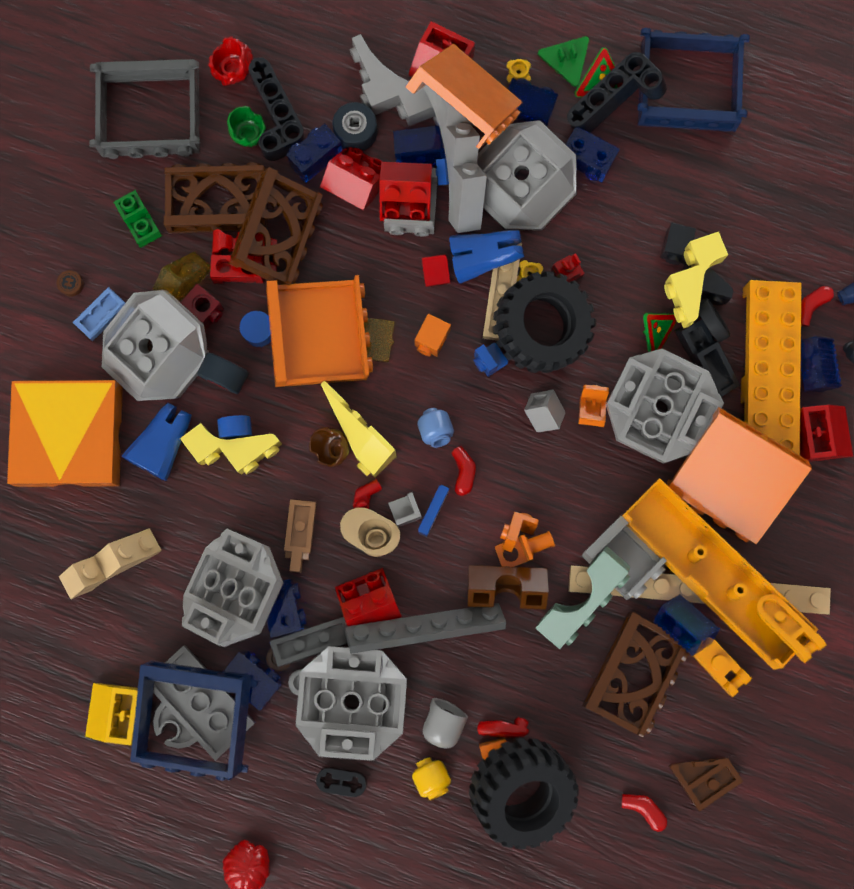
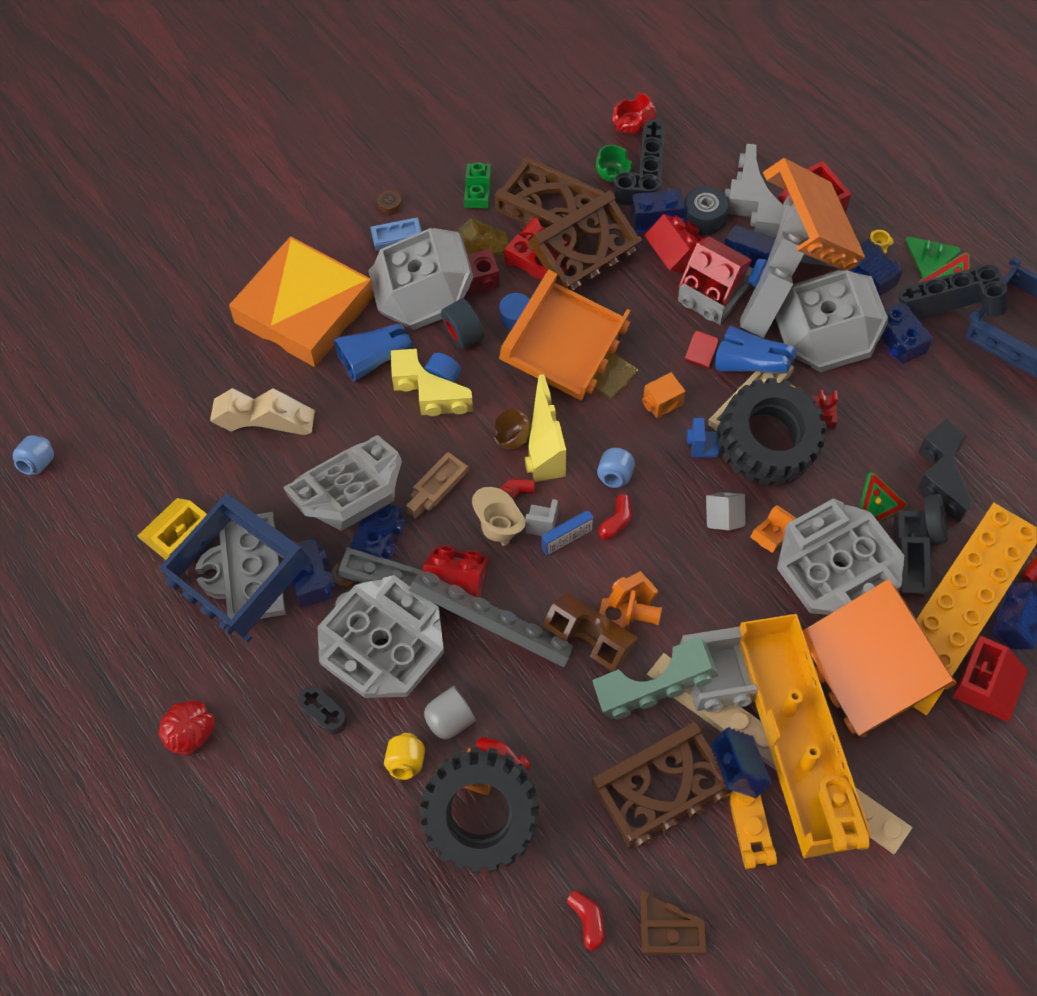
camera: 35 degrees right, 20 degrees down
(145, 71) = (556, 88): dark grey window -> none
(687, 285) = (926, 469): light yellow arch -> none

